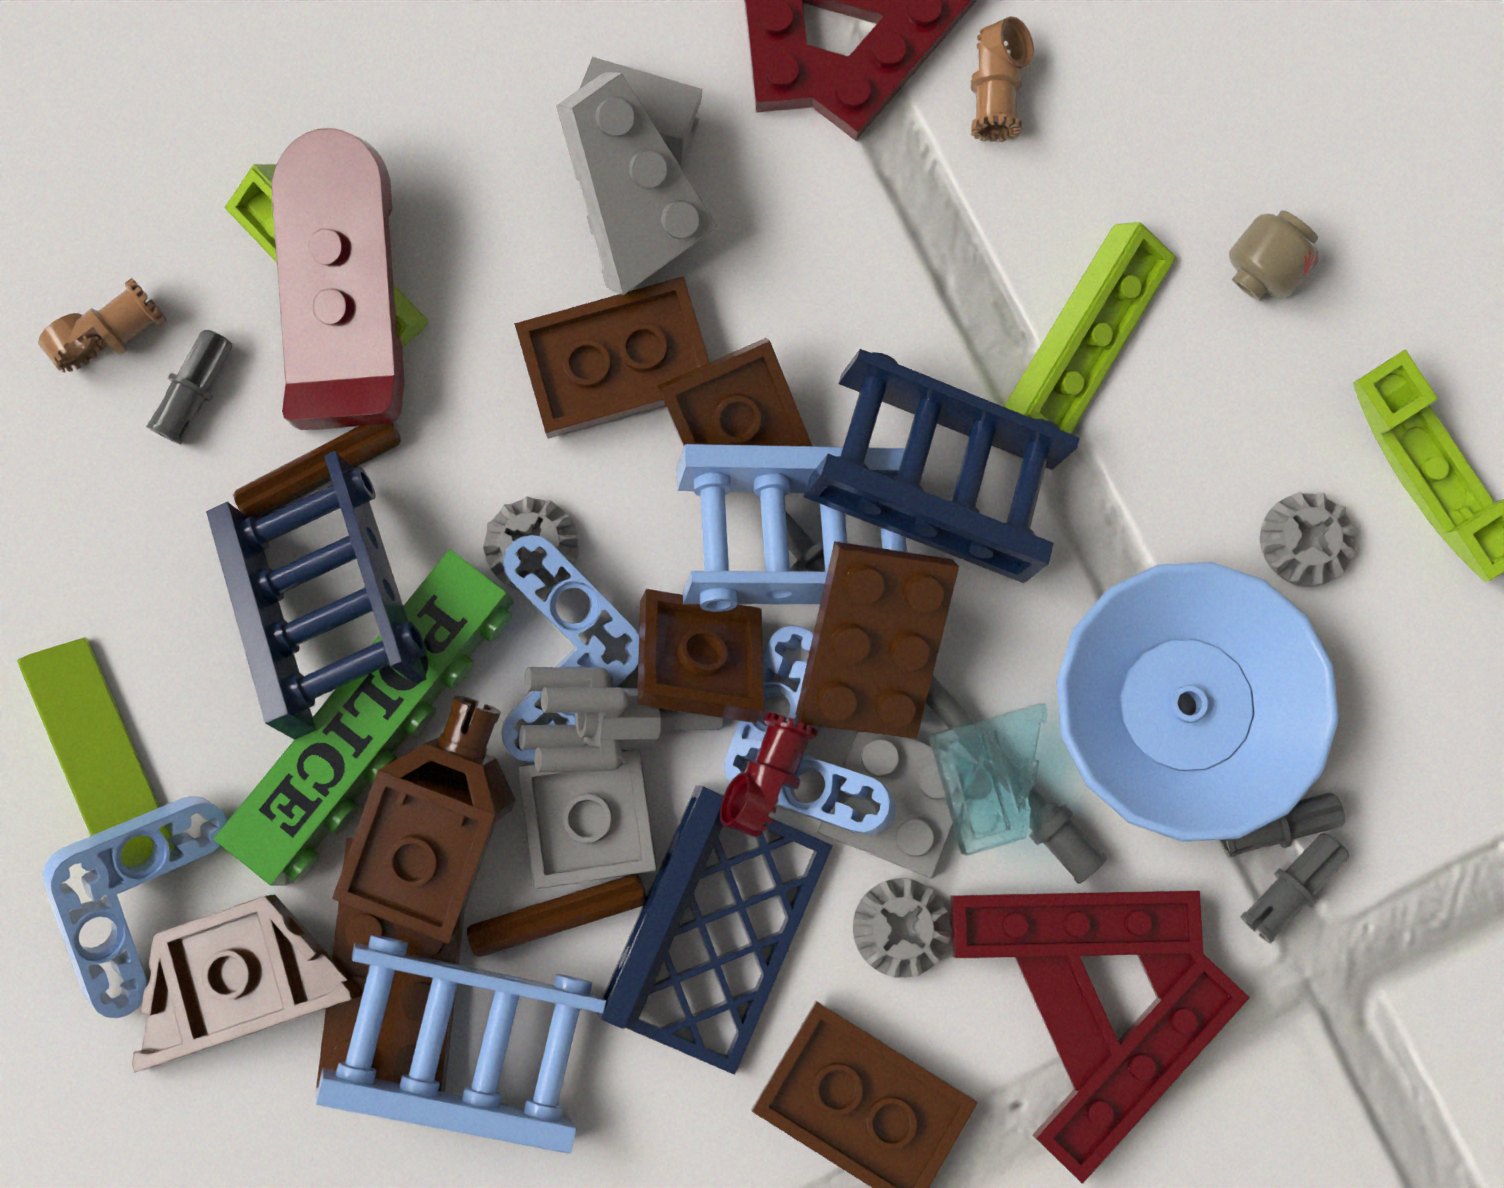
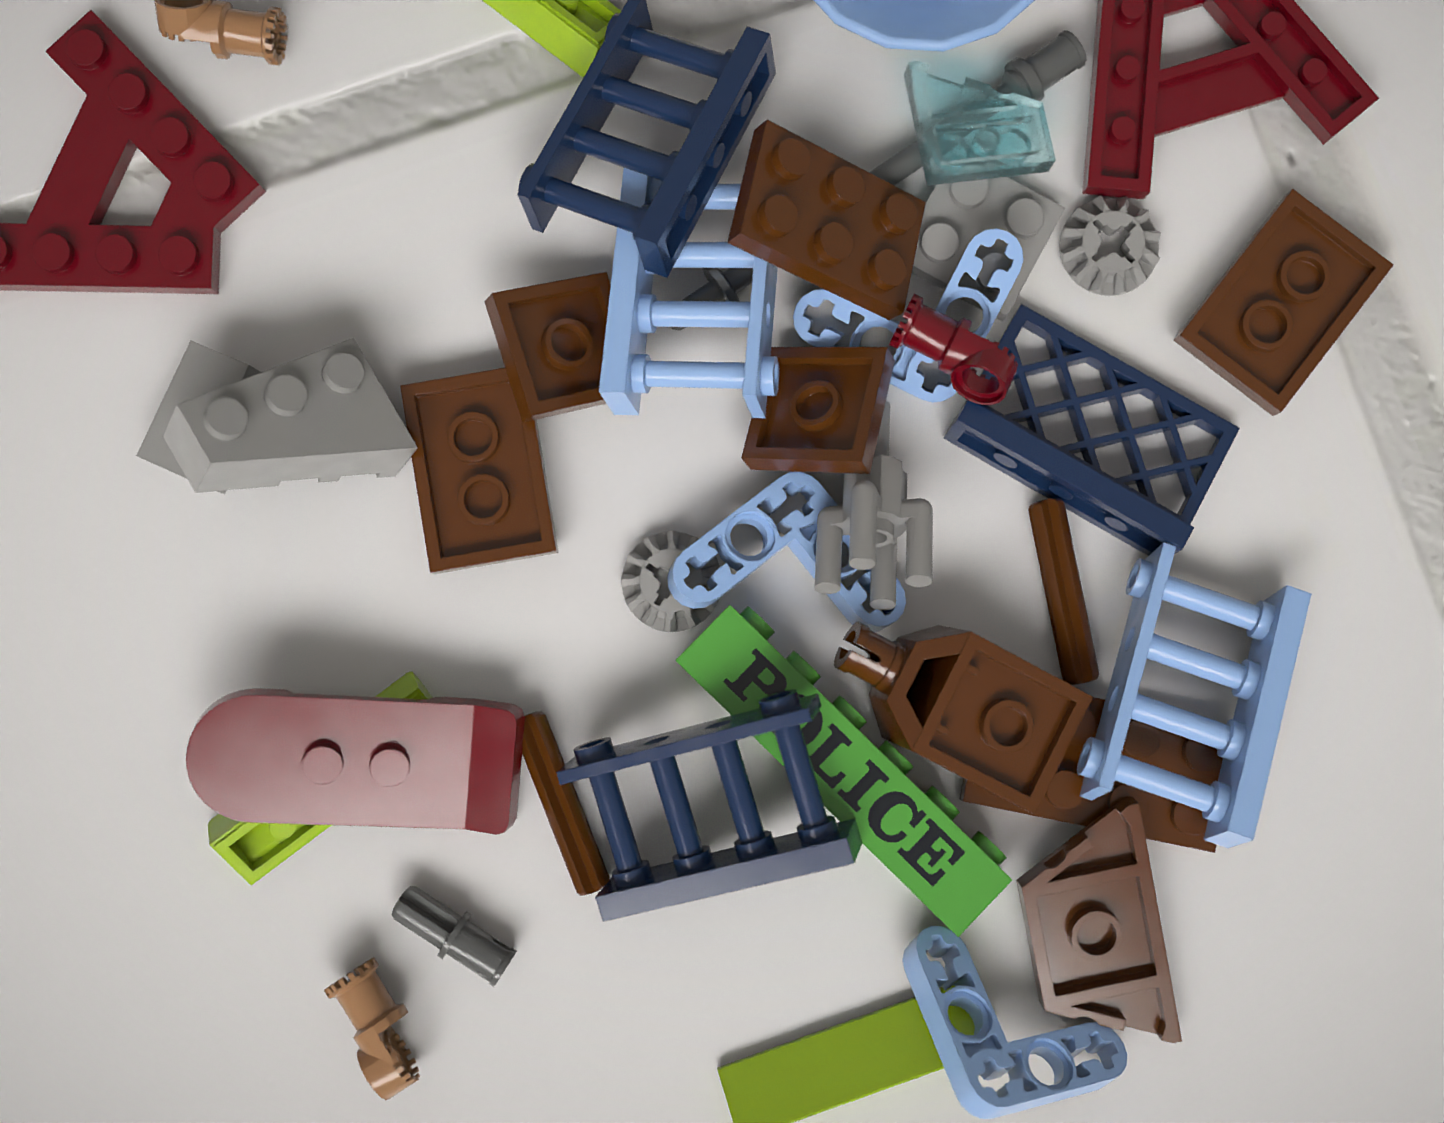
camera: 85 degrees left, 5 degrees up
(587, 823) = (979, 549): light grey plate -> none

